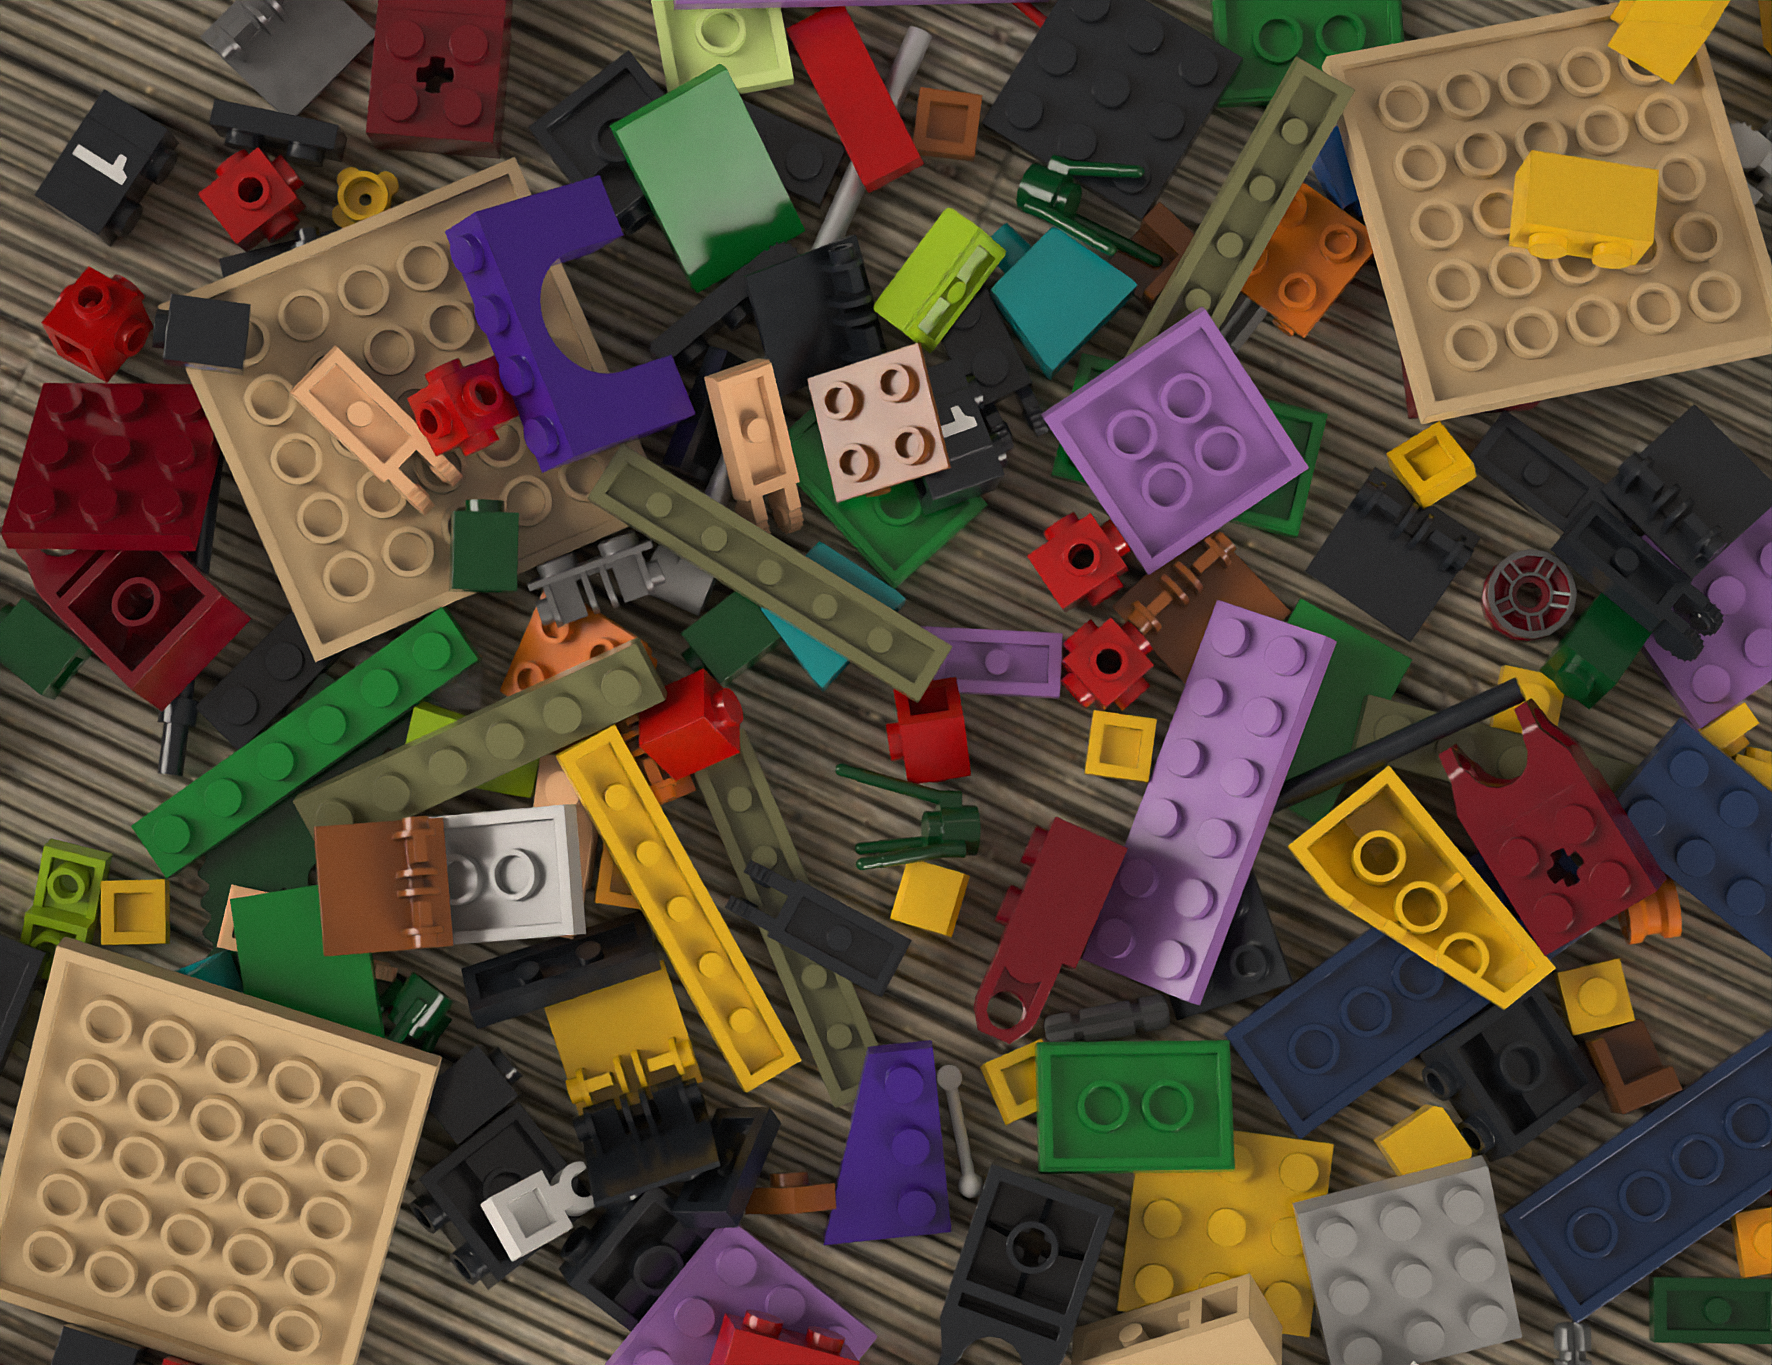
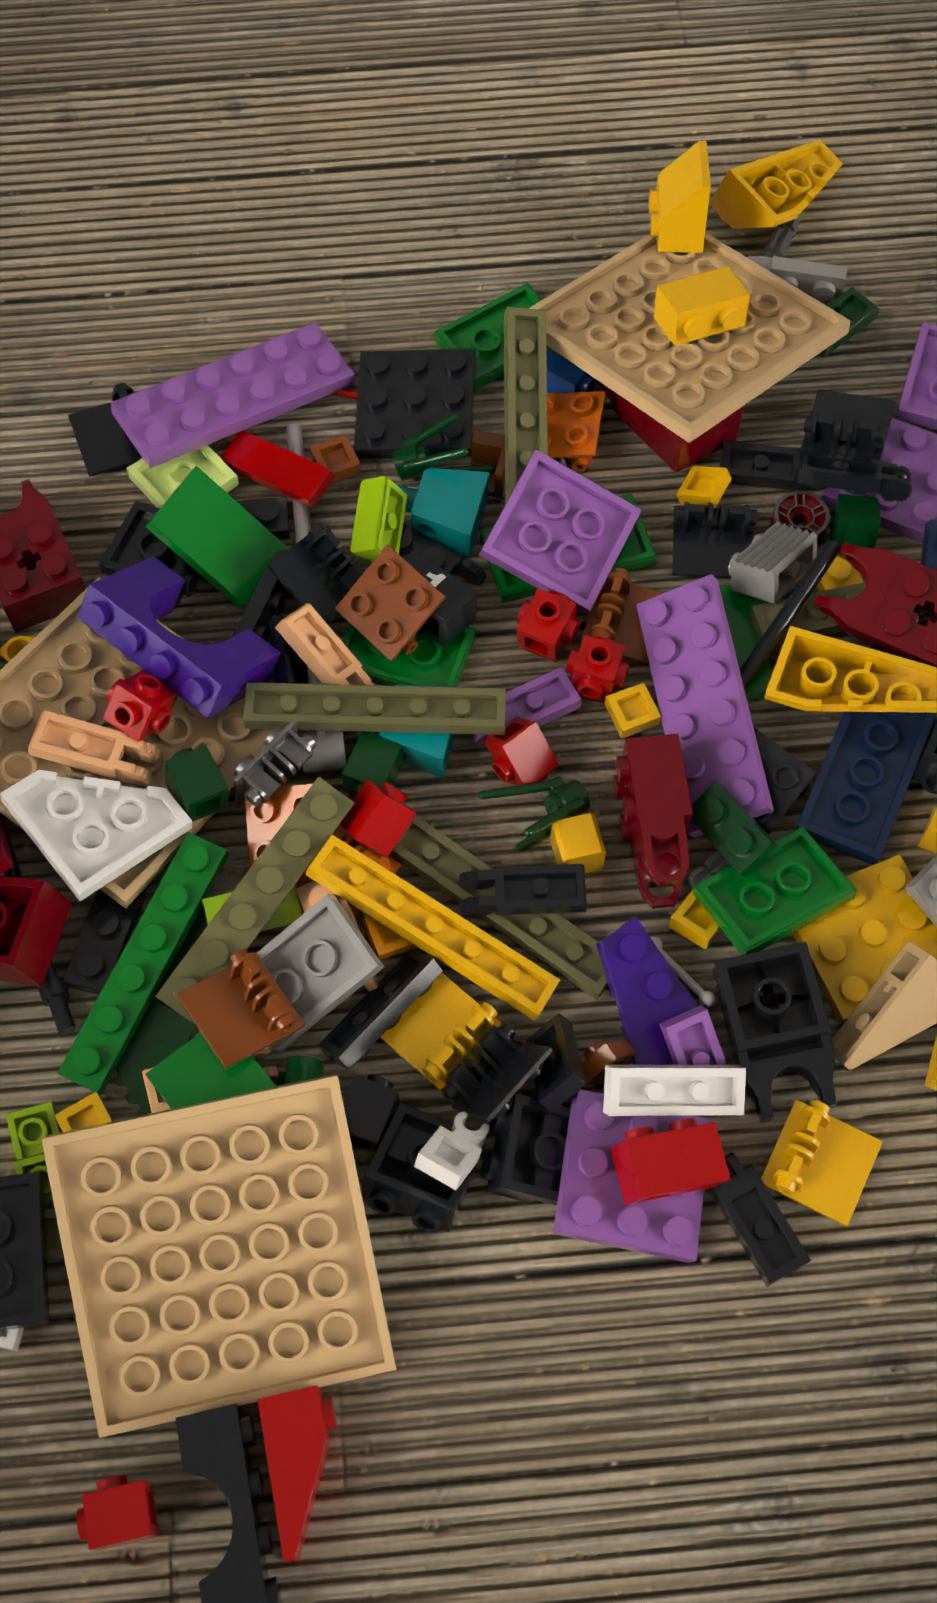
camera: 30 degrees left, 20 degrees down
(323, 543) = (93, 825): none -> white plate
(843, 1289) = (674, 1090): none -> white plate
(903, 1260) = (693, 1039): none -> medium lavender plate
(1125, 1001) = (731, 829): none -> dark green plate
(1439, 648) = (773, 563): none -> light grey brick

